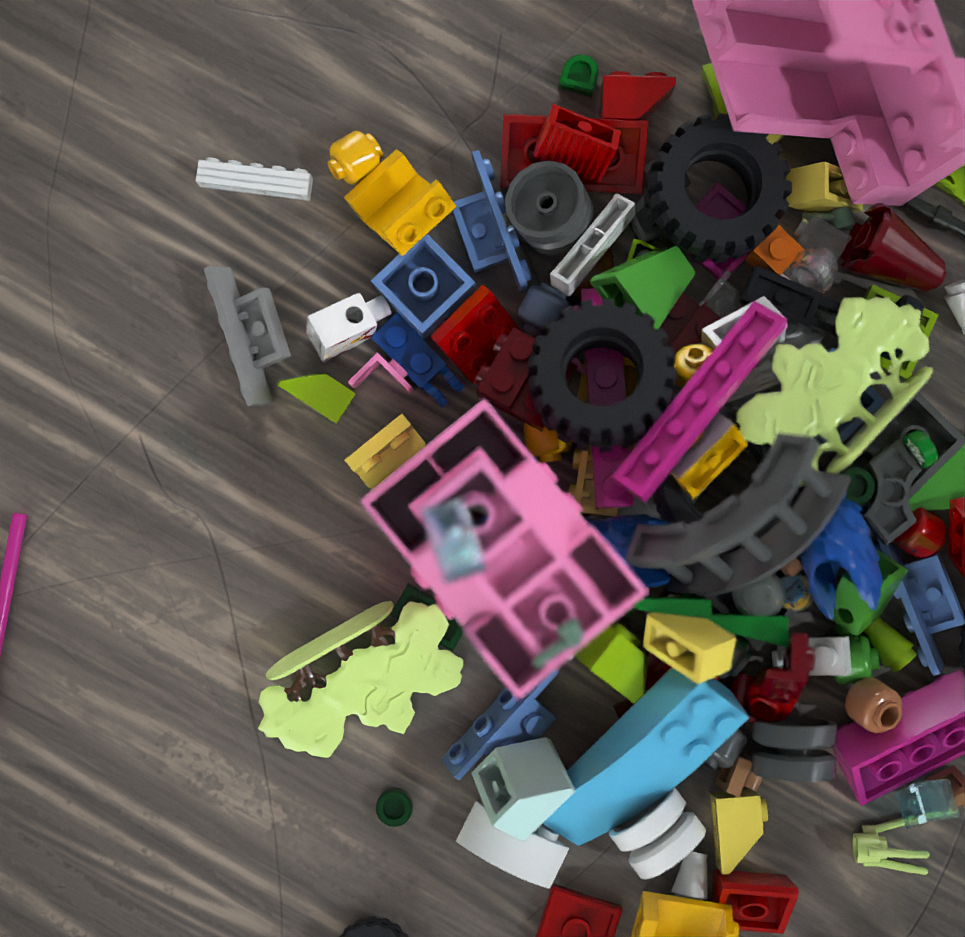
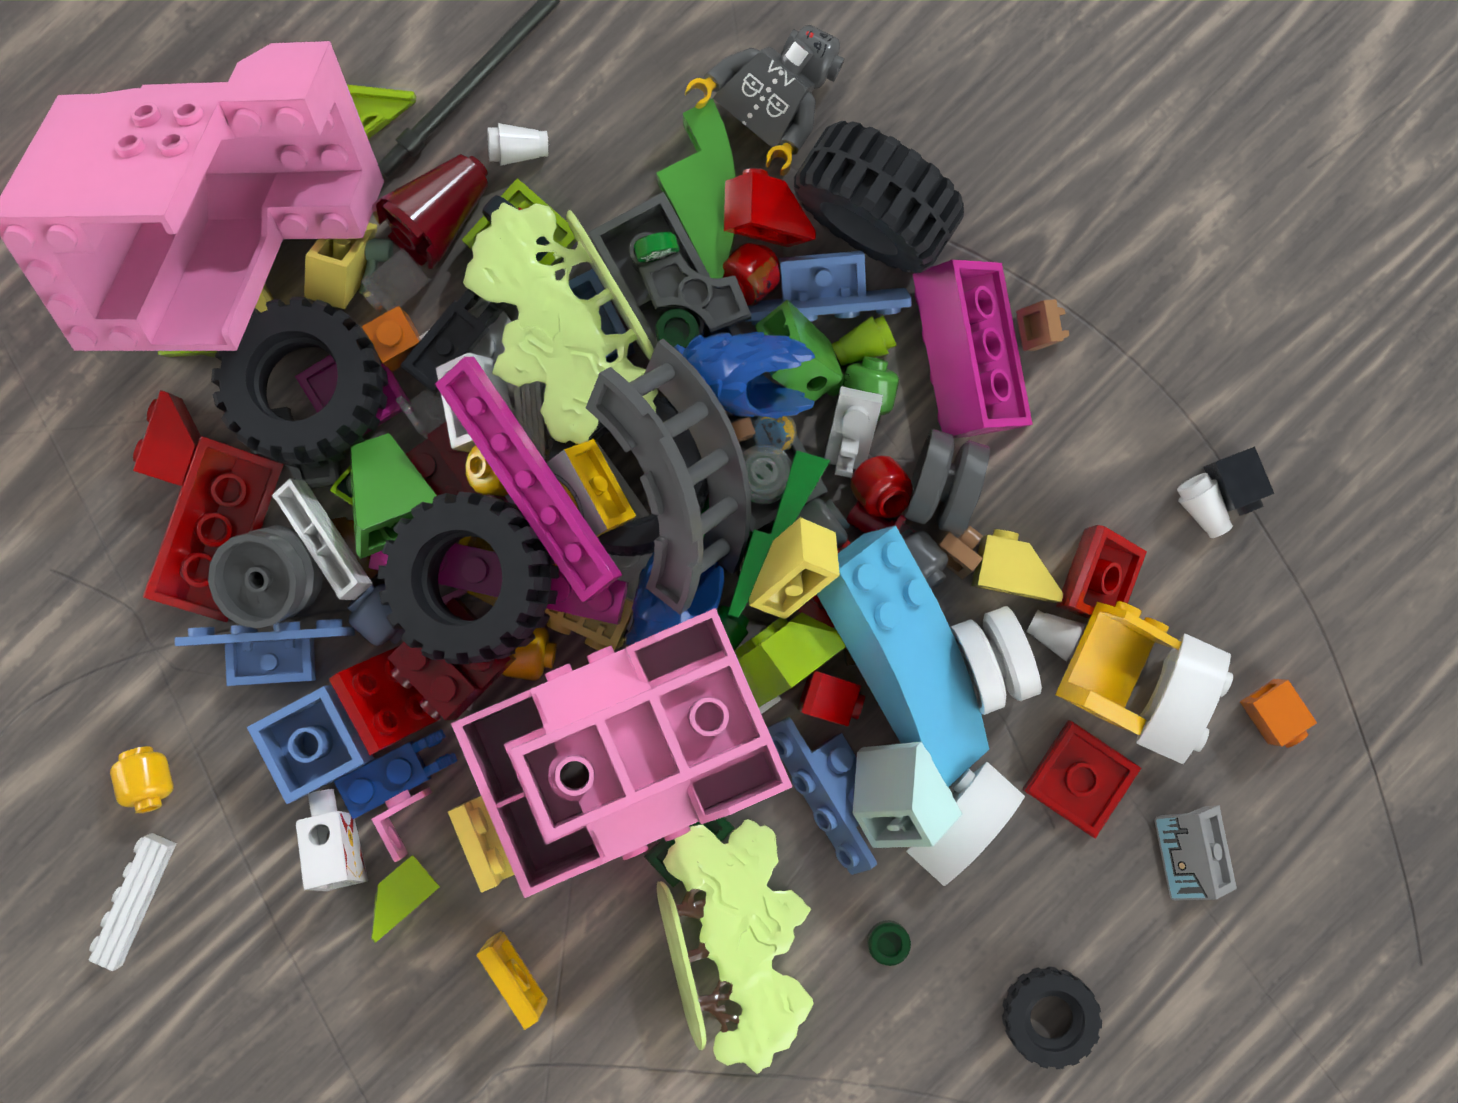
camera: 80 degrees left, 0 degrees up
(250, 331) = (305, 956): light grey bracket -> none
(280, 506) = (513, 979): none -> yellow tile
(399, 203) = (207, 744): yellow panel -> none
(453, 540) = (592, 812): clear light blue slope -> none
(571, 637) = (737, 709): sand green hand -> none
(577, 142) = (200, 524): red brick -> none
(579, 75) = (126, 495): green tile -> none
(584, 701) = (831, 698): none -> red slope
(797, 662) = (870, 475): dark red bracket -> none
(814, 268) = (423, 300): clear cone -> none
(873, 705) = (923, 381): nougat head -> none
(873, 849) = (1082, 427): yellowish green plant -> none
(927, 803) = (1046, 353): clear light blue slope -> none

